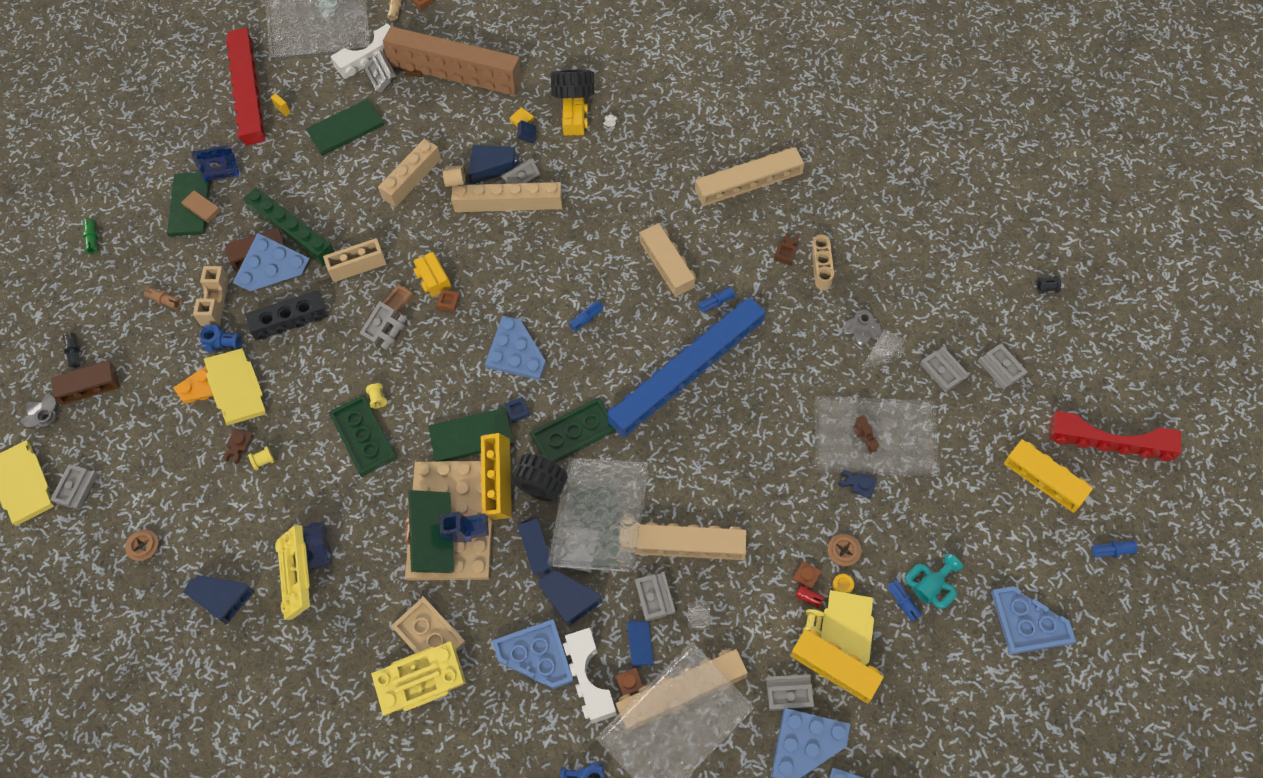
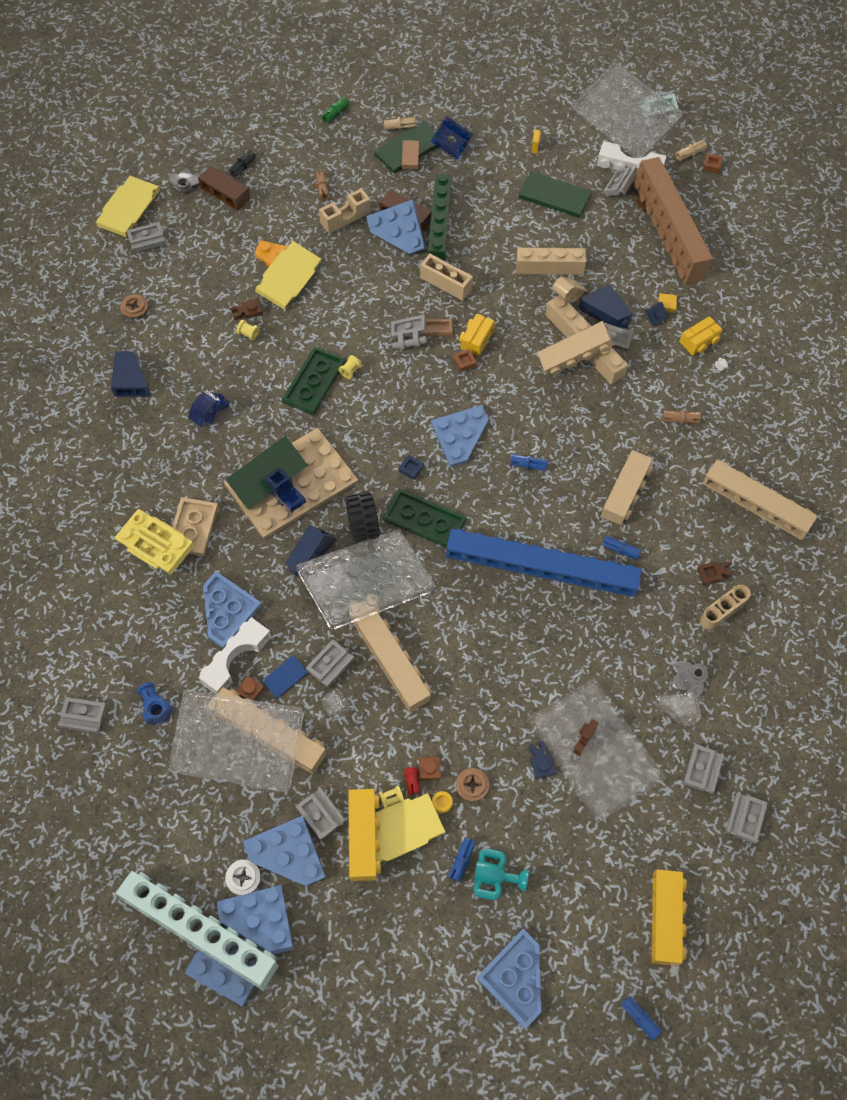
camera: 50 degrees right, 0 degrees up
(158, 194) = (399, 123): none -> tan axle
(219, 338) = (315, 237): blue connector -> none
(246, 88) = (532, 110): red brick -> none
(277, 314) = (368, 267): black brick -> none
(293, 572) = (175, 407): light yellow piece -> none
(463, 435) = (367, 450): dark green tile -> none
(496, 476) = (348, 481): yellow brick -> none
(515, 207) = (576, 348): none -> tan brick
(568, 596) = (285, 601): dark blue slope -> none
(572, 83) = (725, 313): black tyre -> none
(634, 179) = (681, 416): none -> medium nougat pin
(1072, 429) = (778, 1003): red arch -> none

